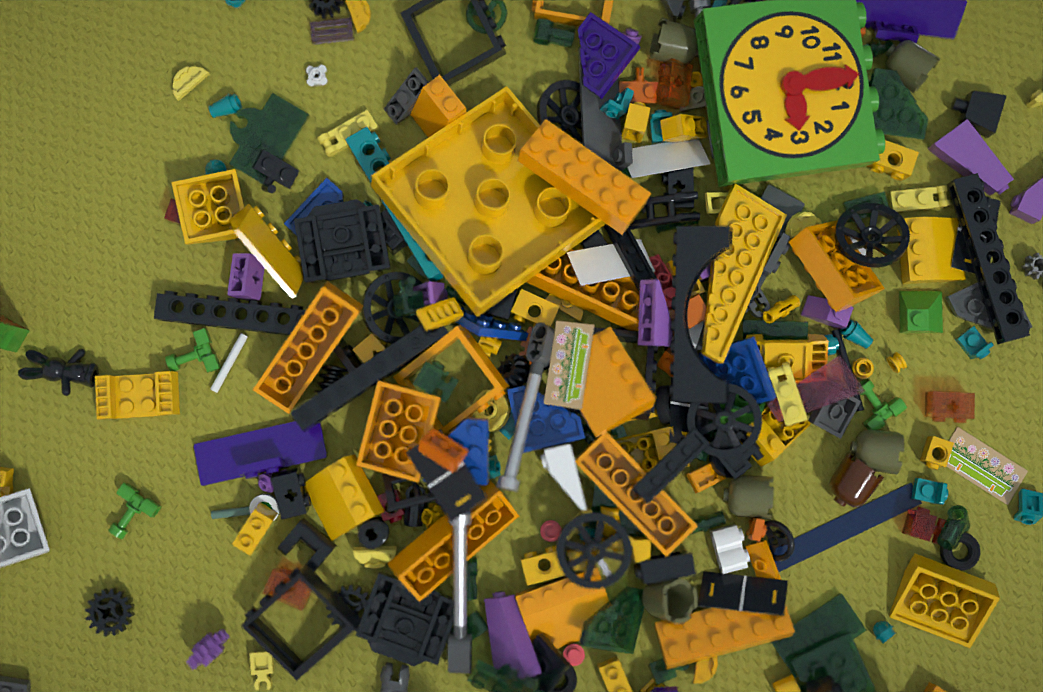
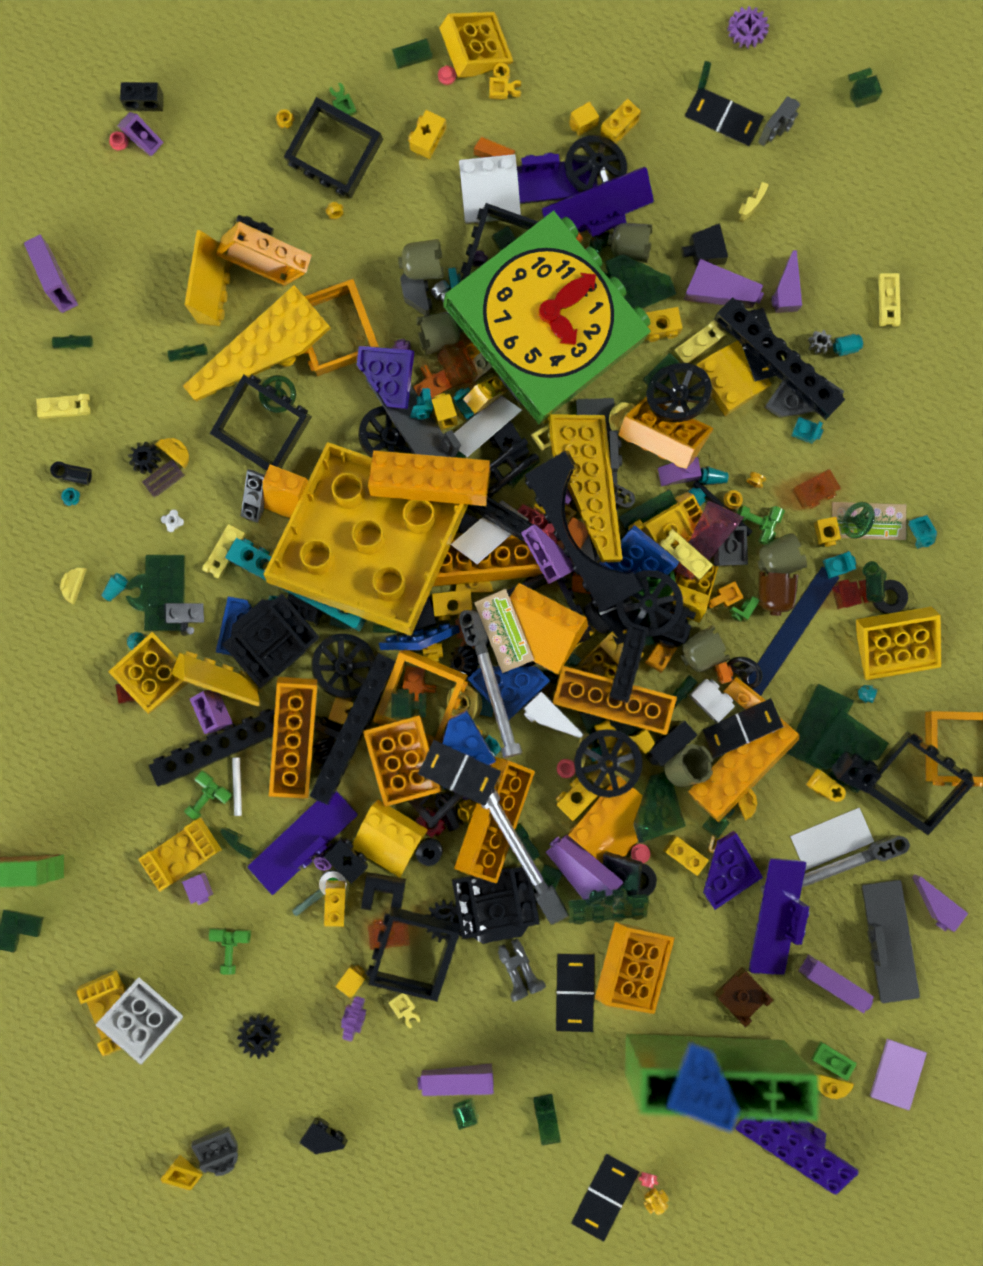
camera: 20 degrees left, 0 degrees up
(57, 369) = (104, 871): black animal -> none
(134, 438) = (198, 889): none -> medium lavender brick
(196, 411) = (233, 839): none -> clear green slope
(228, 611) = (351, 980): none -> yellow brick
(375, 557) = (441, 870): light yellow plate -> none
(408, 301) = (350, 655): clear green brick -> none
(432, 292) = (363, 640): medium lavender slope -> none
(442, 314) = (381, 649): yellow slope -> none
(442, 450) = (445, 754): orange slope -> none
(456, 363) = (415, 681): none -> orange plate
(548, 33) = (335, 381): clear green piece -> none
(781, 309) = (643, 491): yellow pin -> none
(803, 456) = (727, 595): none -> light orange plate
(816, 480) = (748, 607): none -> bright green bracket
(920, 312) = (752, 429): bright green slope -> none
(976, 462) = (862, 521): none -> clear green piece

